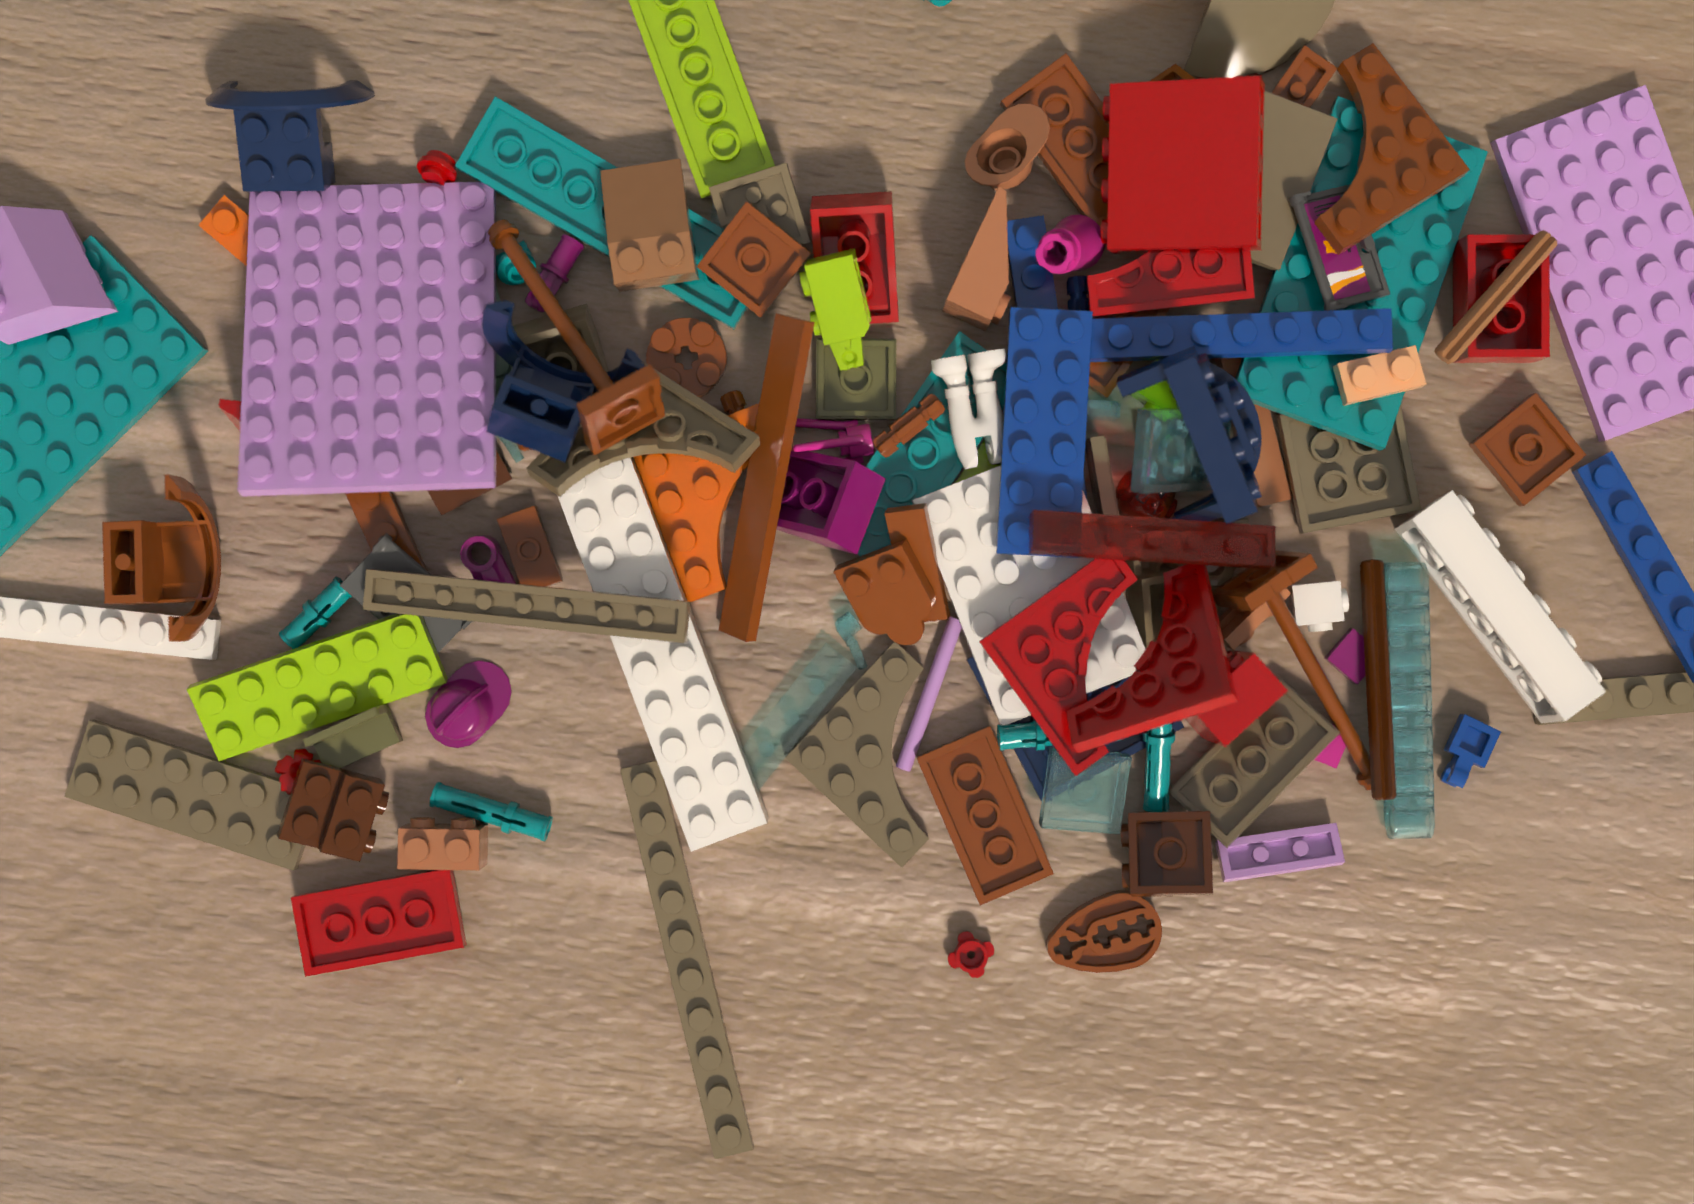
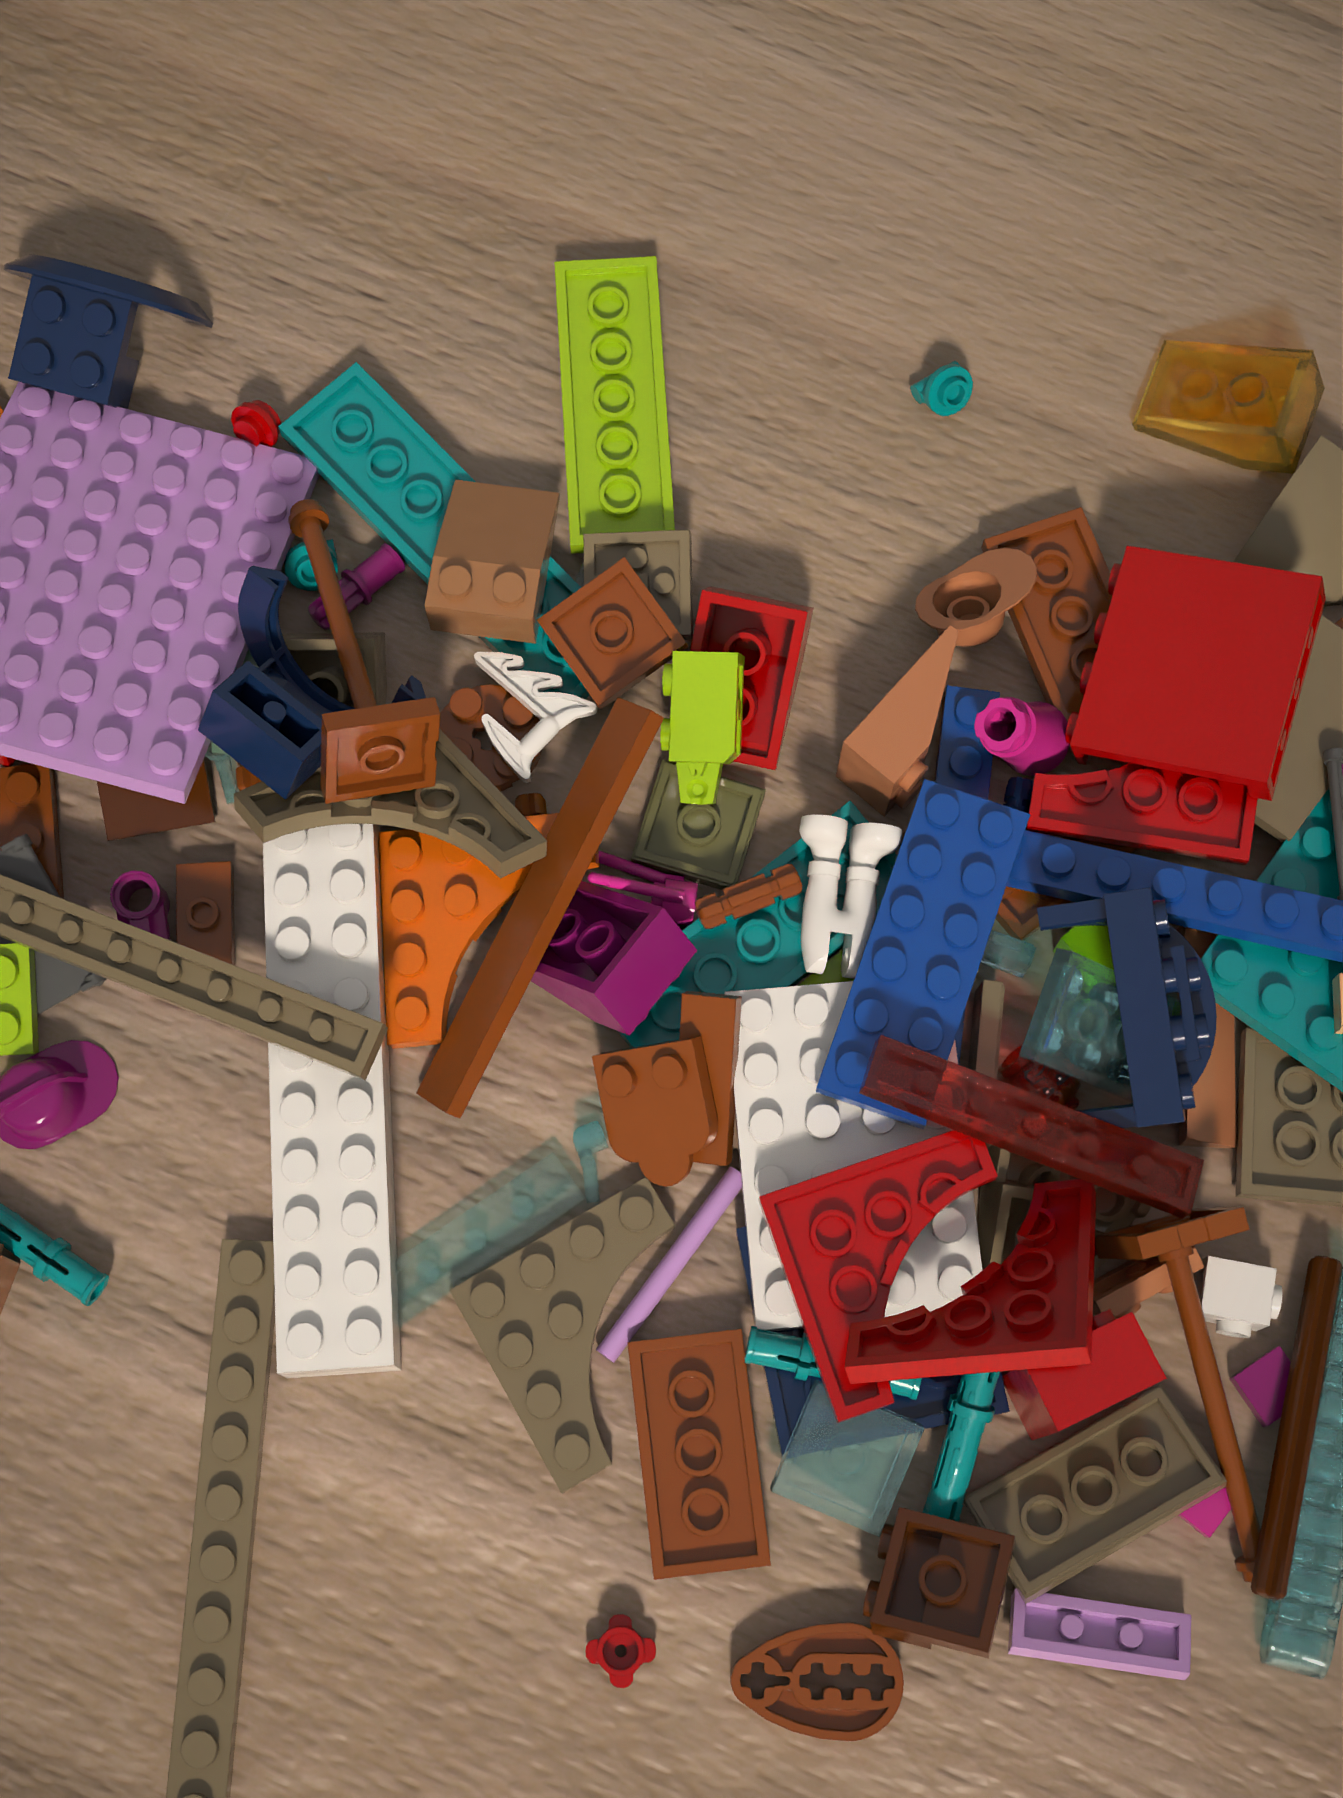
camera: 15 degrees right, 15 degrees down
(728, 327) = (552, 709): none -> white piece

